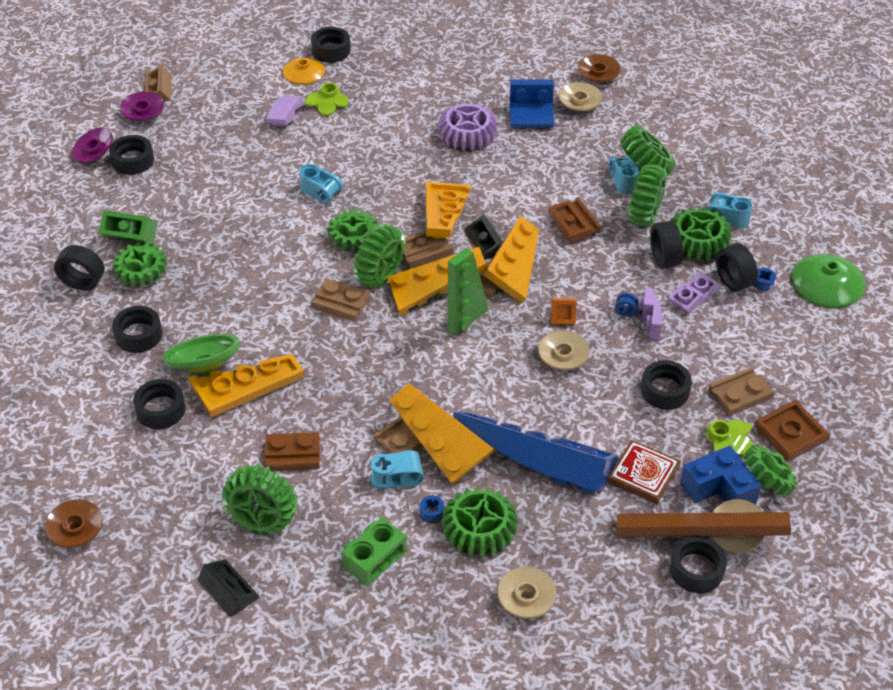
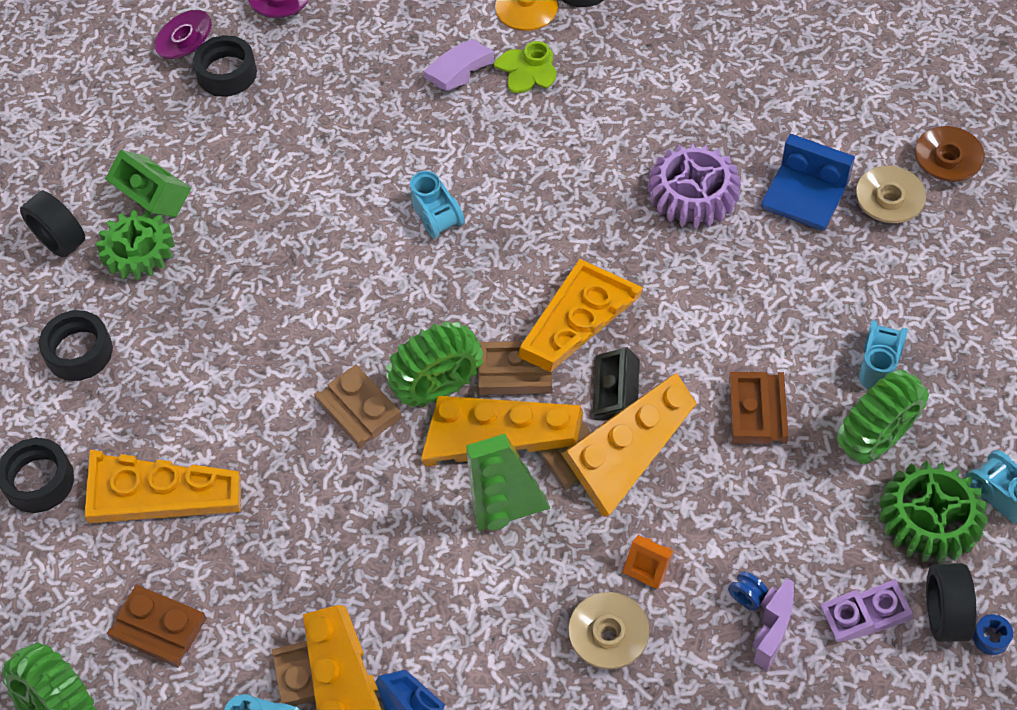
camera: 30 degrees right, 10 degrees up
(202, 353) = (123, 420): bright green dish -> none
(350, 229) = (434, 298): bright green gear -> none
(646, 149) = (929, 338): bright green gear -> none
(666, 244) = (864, 514): black tyre -> none

